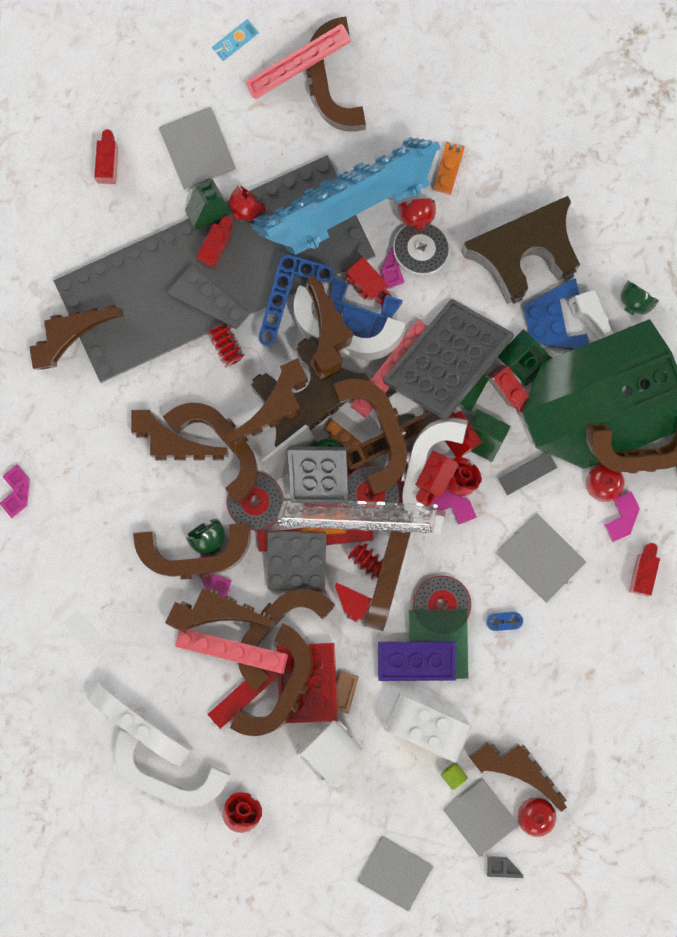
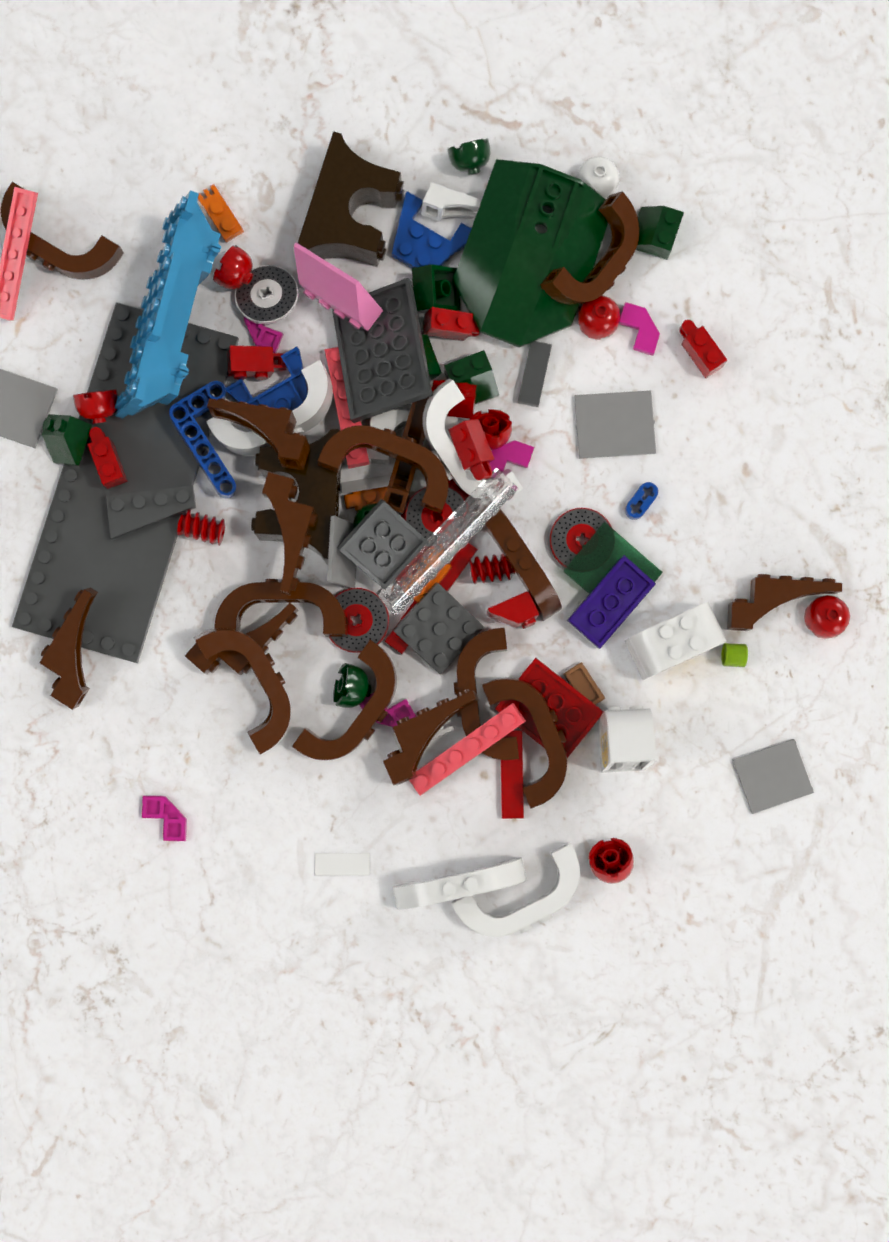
camera: 50 degrees left, 0 degrees up
(163, 426) = (277, 721): none -> reddish brown arch
(460, 293) = (335, 289): none -> bright pink slope
(481, 817) = (787, 663): light grey piece -> none
(502, 867) = (843, 682): dark grey tile -> none

